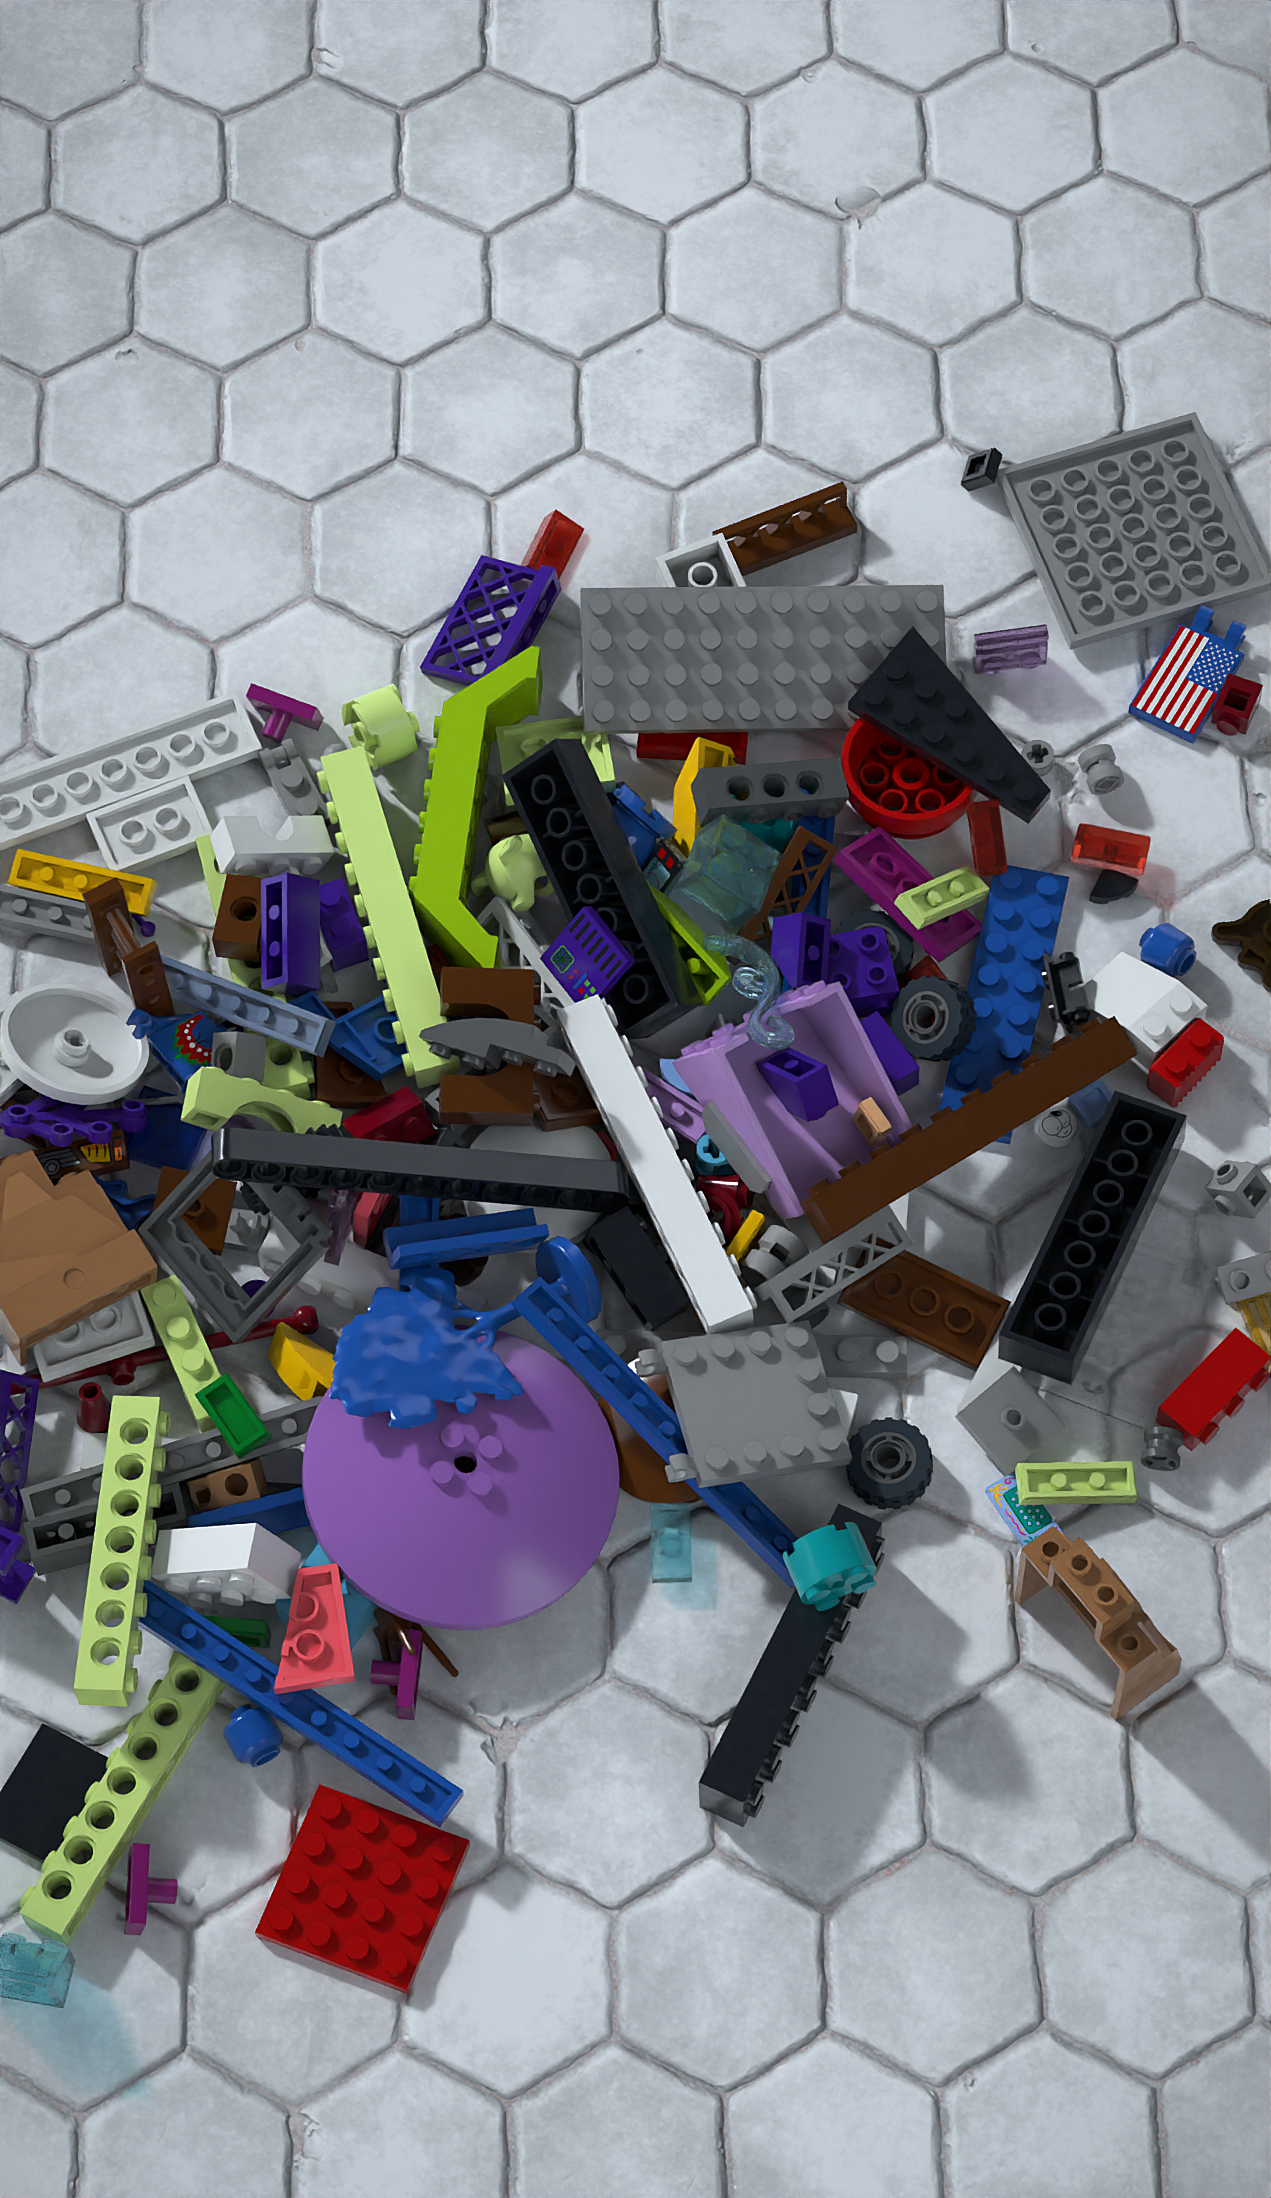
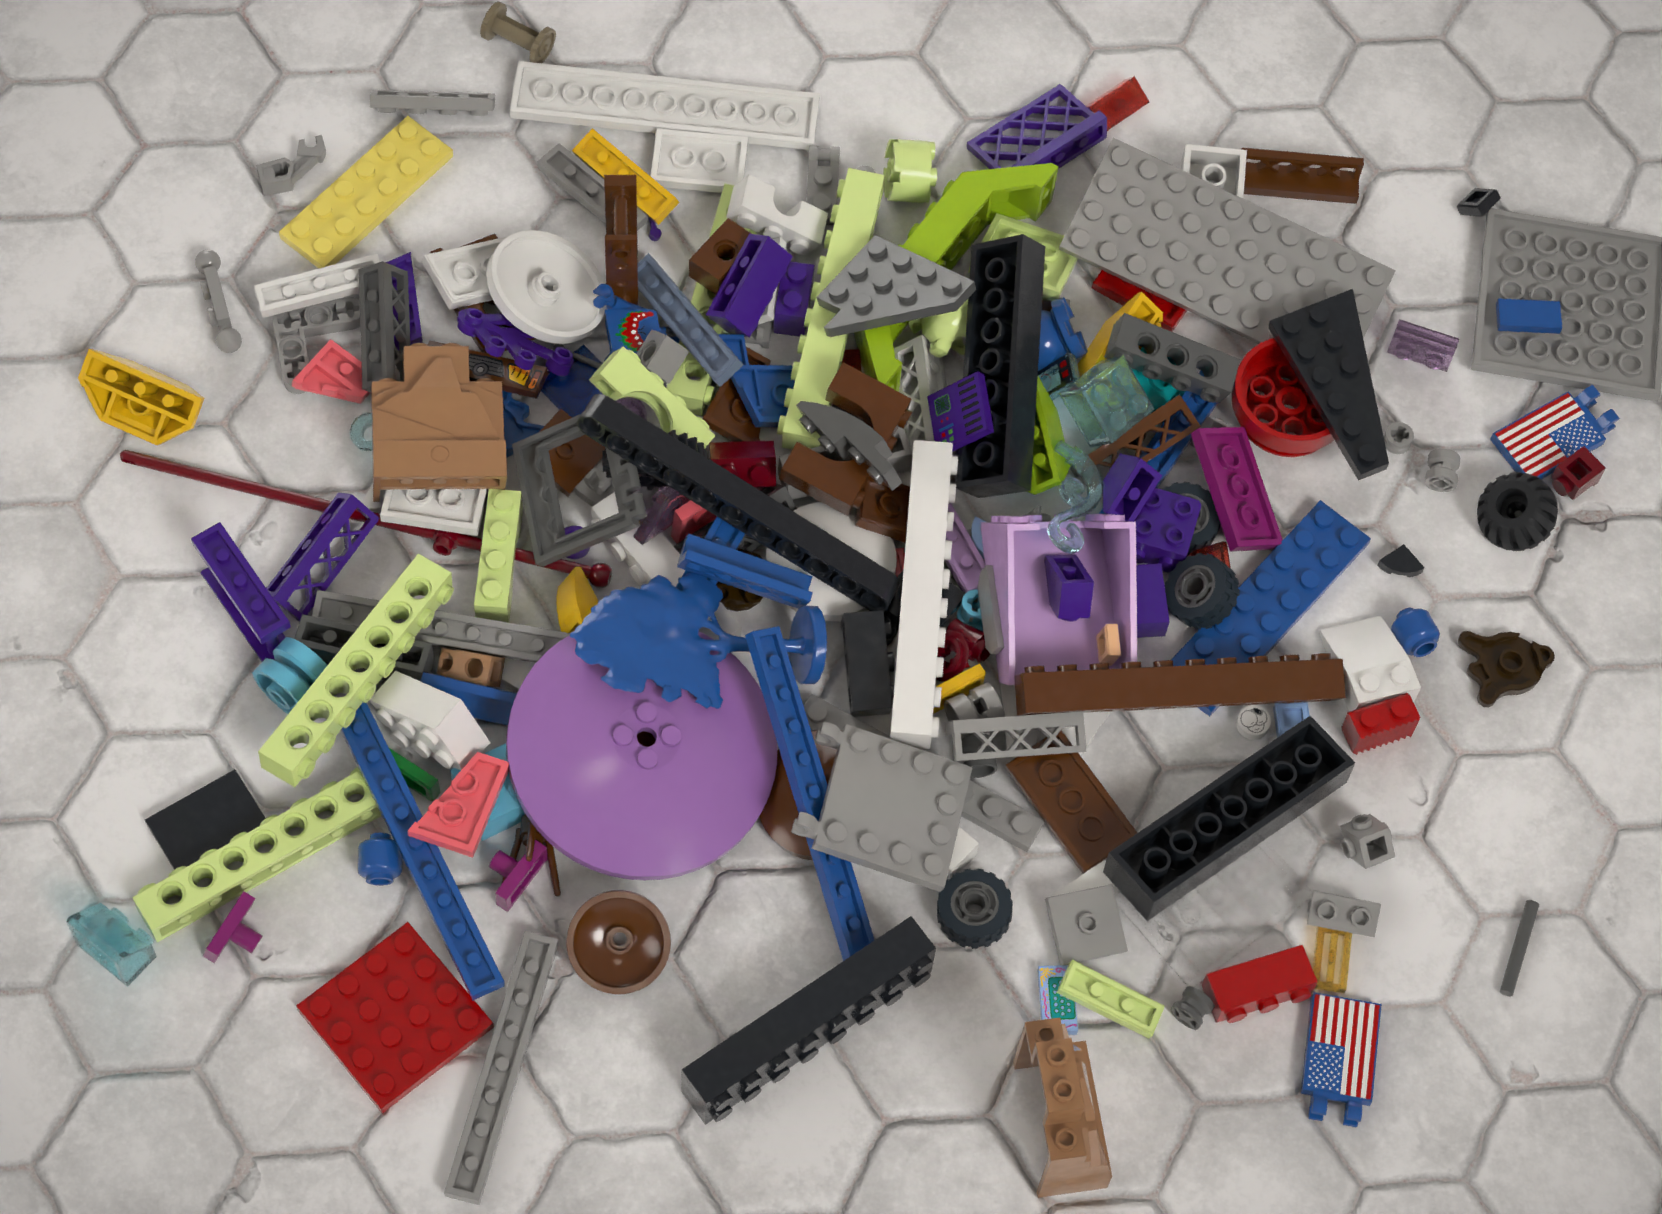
camera: 20 degrees right, 0 degrees up
(49, 1594) = (289, 674): none -> medium azure wheel
(93, 1409) = (404, 555): dark red cone -> none
(233, 1416) = (499, 615): green tile -> none
(282, 712) = (844, 125): magenta tile -> none
(442, 862) = (890, 287): none -> wing
(505, 1881) = (501, 1068): none -> light grey plate
(575, 1703) = (611, 965): none -> reddish brown dish
(671, 1543) = (774, 881): clear light blue plate -> none
(830, 1565) = (873, 958): teal brick -> none
(942, 896) = (1261, 503): yellowish green tile -> none
(986, 837) = (1321, 476): clear red slope -> none
(1058, 978) = (1313, 634): black hinge -> none
(1099, 564) = (1529, 316): none -> blue tile
(1111, 849) = (1415, 534): clear red slope -> none
(1203, 753) = (1509, 495): none -> black wheel

